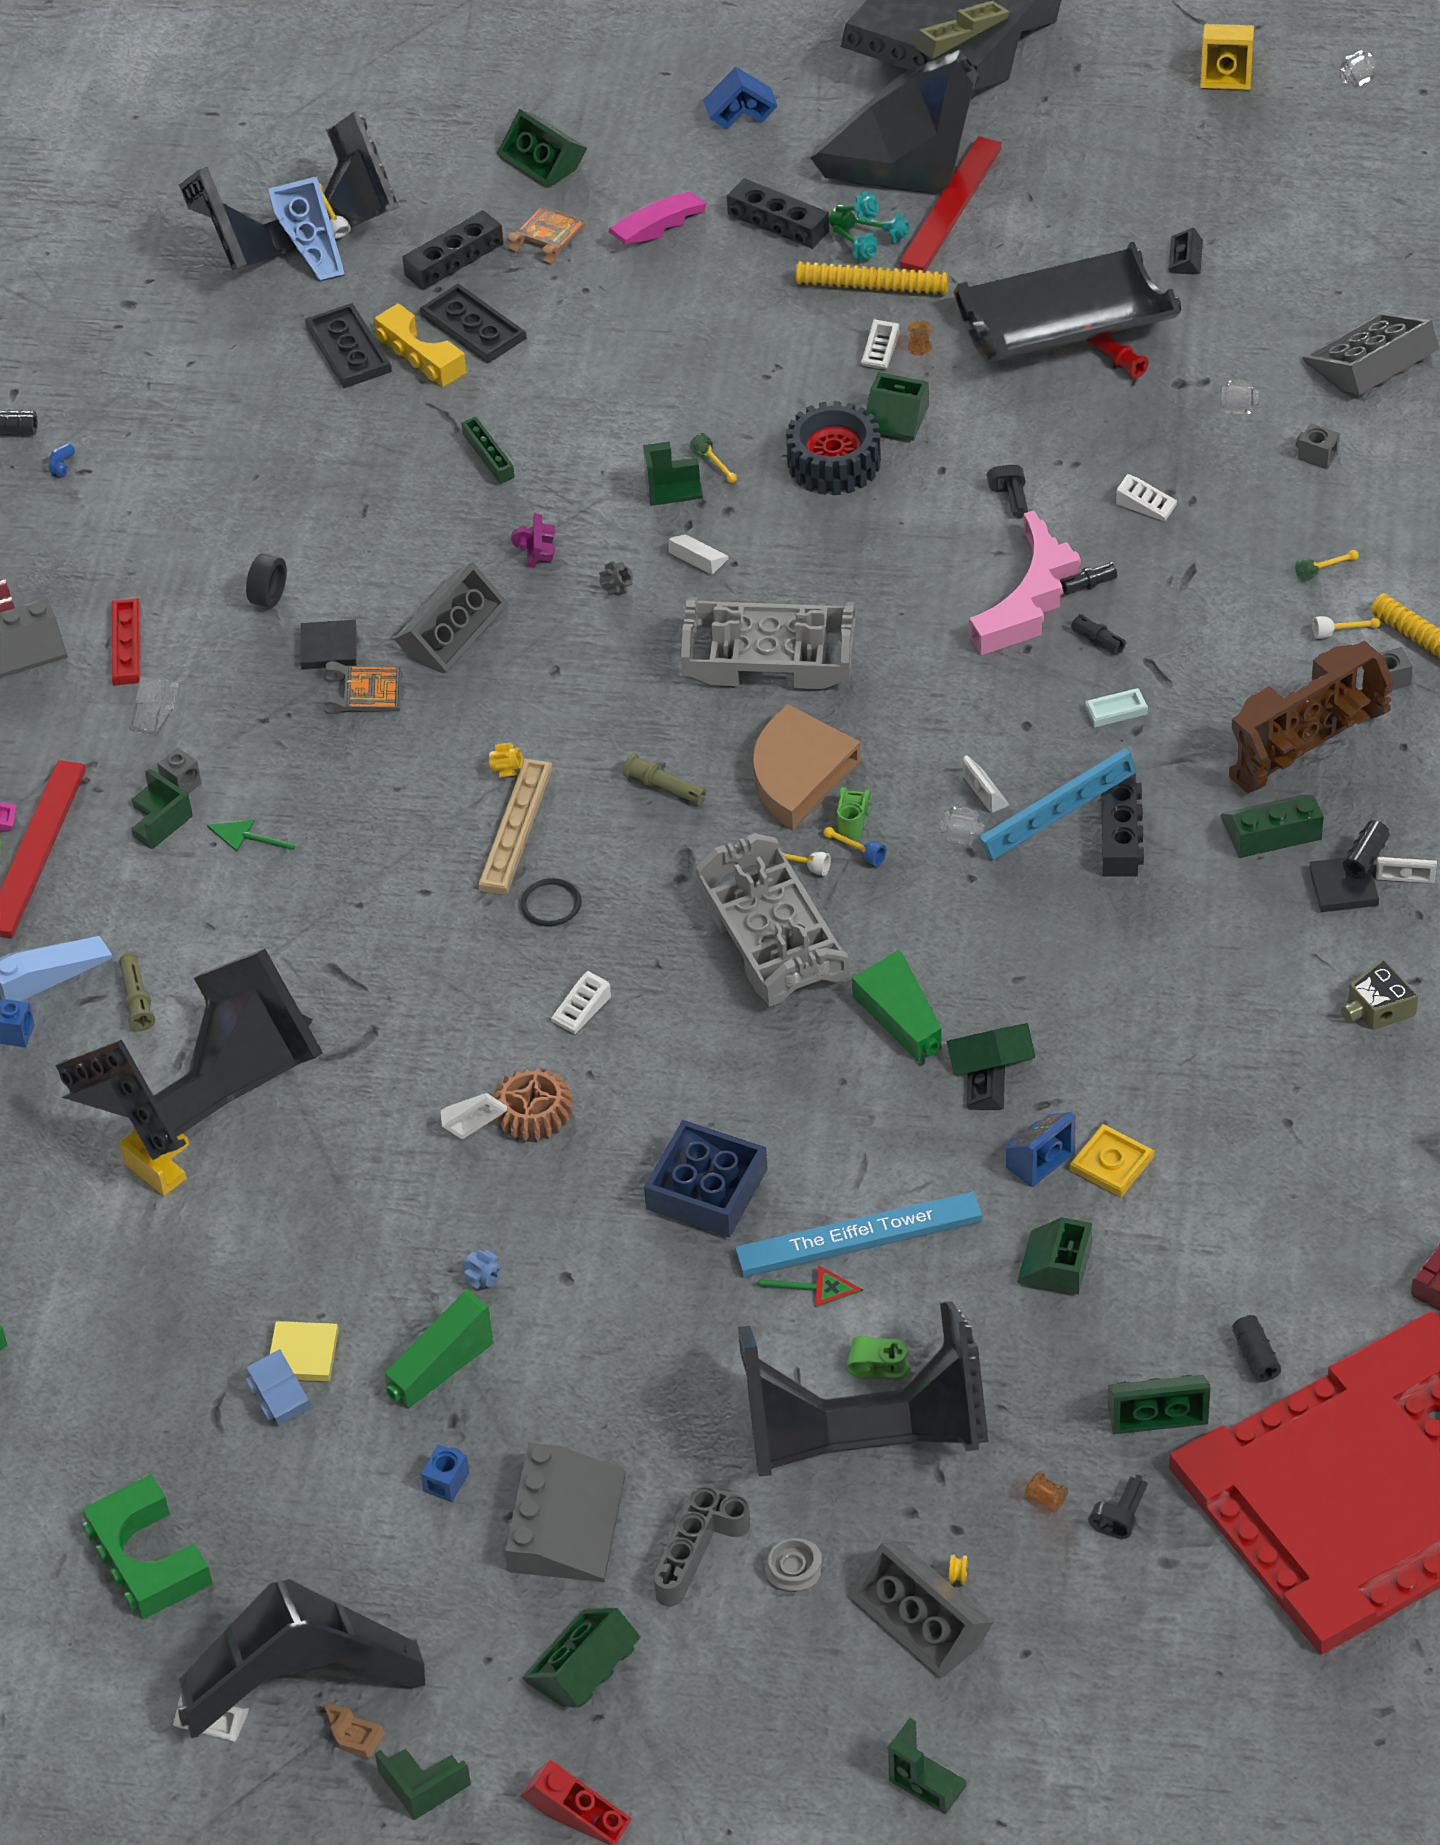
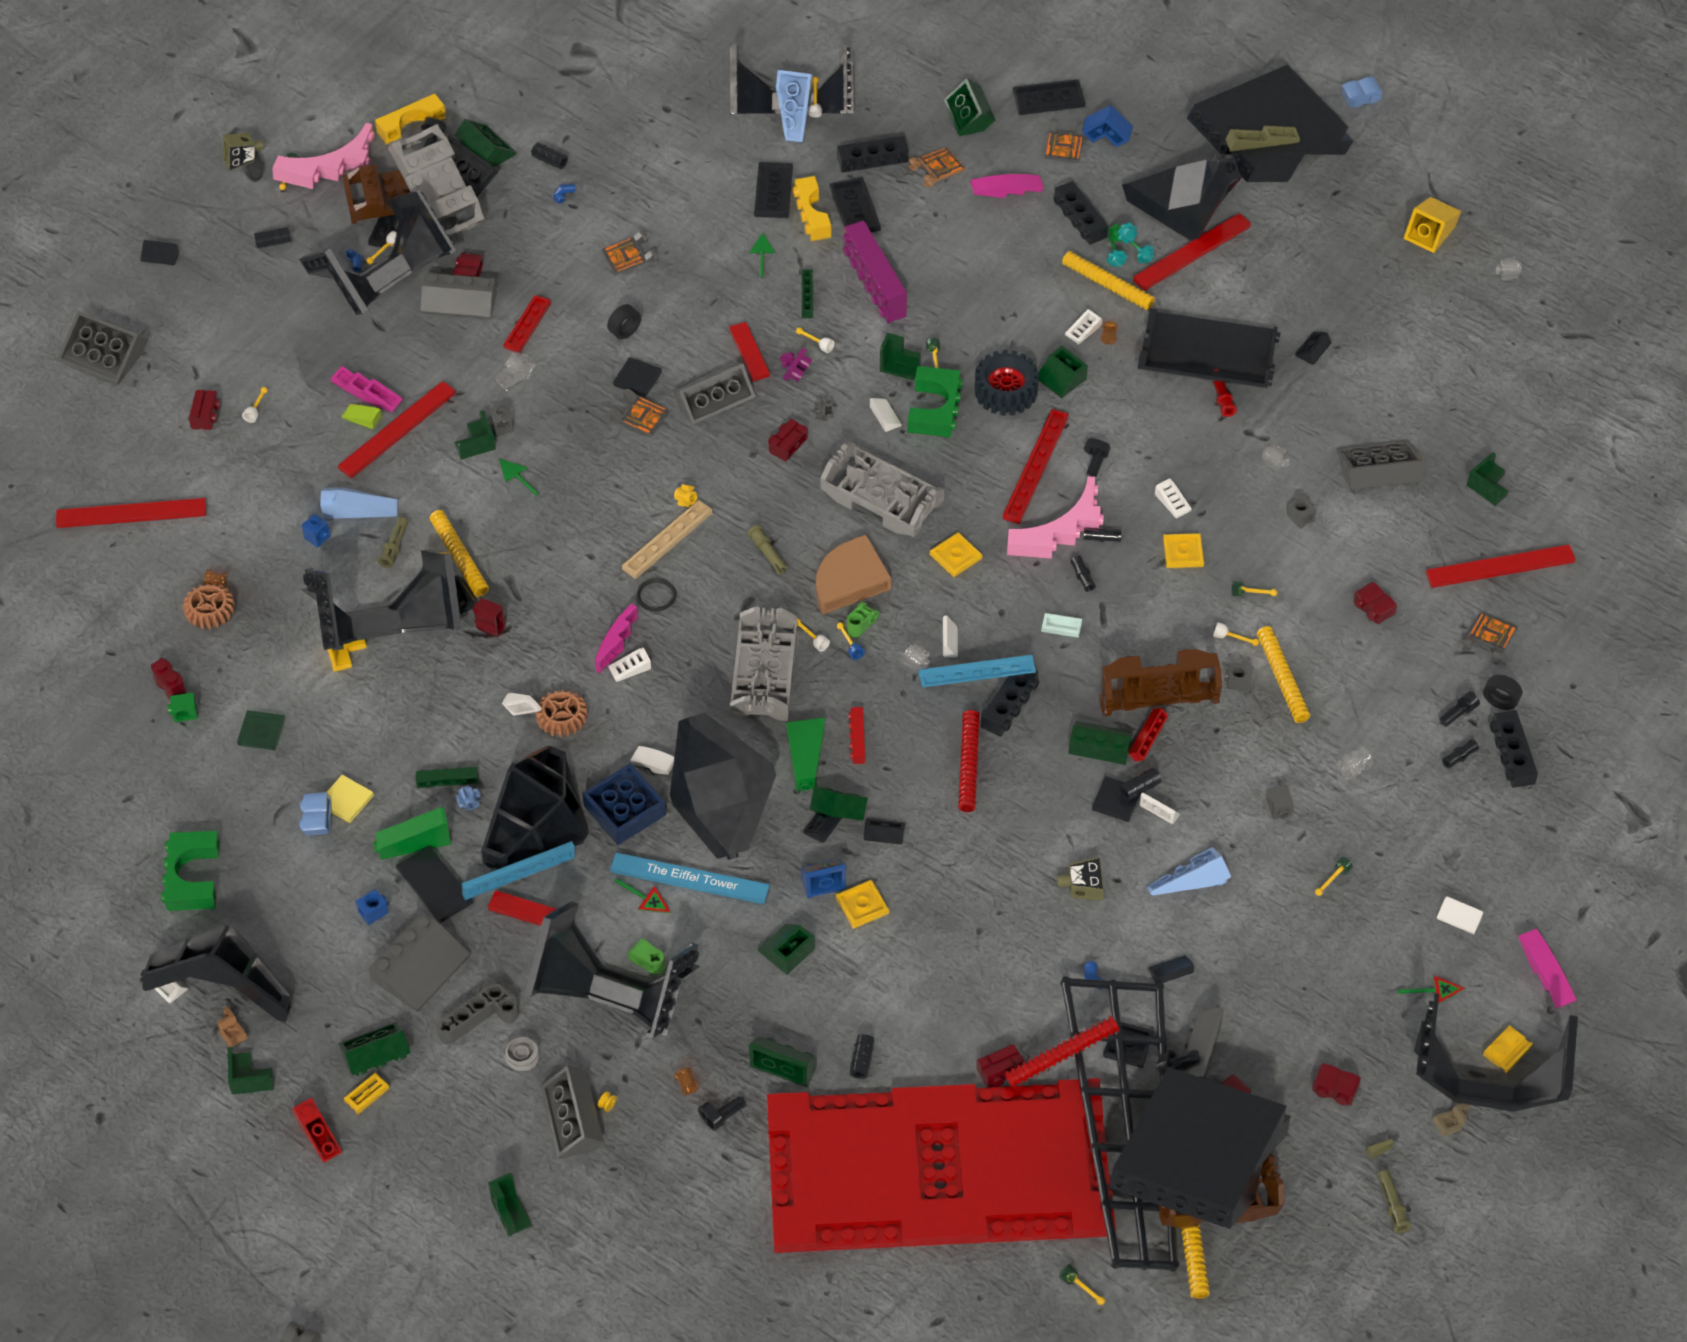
camera: 25 degrees right, 5 degrees up
(114, 1317) = (261, 730): none -> clear green tile
(205, 502) = (628, 254): none -> flag
(218, 953) = (459, 553): none -> yellow piece
(346, 1024) = (489, 617): none -> dark red brick
(384, 419) = (762, 246): none -> green piece
(428, 1258) = (446, 777): none -> dark green piece
(457, 549) = (749, 351): none -> red tile
(509, 1403) = (433, 884): none -> black tile
(539, 976) = (614, 640): none -> dark pink slope
(556, 500) = (825, 344): none -> white hinge
(564, 384) = (875, 272): none -> magenta brick
(593, 635) = (788, 439): none -> dark red brick
(600, 1247) = (534, 810): none -> black panel
(603, 1746) = (368, 1095): none -> yellow tile
(620, 1330) = (518, 870): none -> dark azure tile
(632, 97) = (1048, 97): none -> black tile
(668, 1377) = (519, 908): none -> red tile
(693, 145) = (1064, 145): none -> flag
(706, 1105) = (654, 759): none -> white slope
(756, 483) = (940, 420): none -> green arch
(828, 1092) = (719, 785): none -> black panel
(916, 682) = (956, 554): none -> yellow tile
(941, 534) = (1035, 466): none -> red tile
(952, 955) = (857, 735): none -> red piece
(1074, 1058) = (884, 831): none -> black slope
(1122, 921) = (969, 761): none -> red piece
(1203, 554) = (1183, 550): none -> yellow tile
(1327, 787) = (1148, 734): none -> red piece

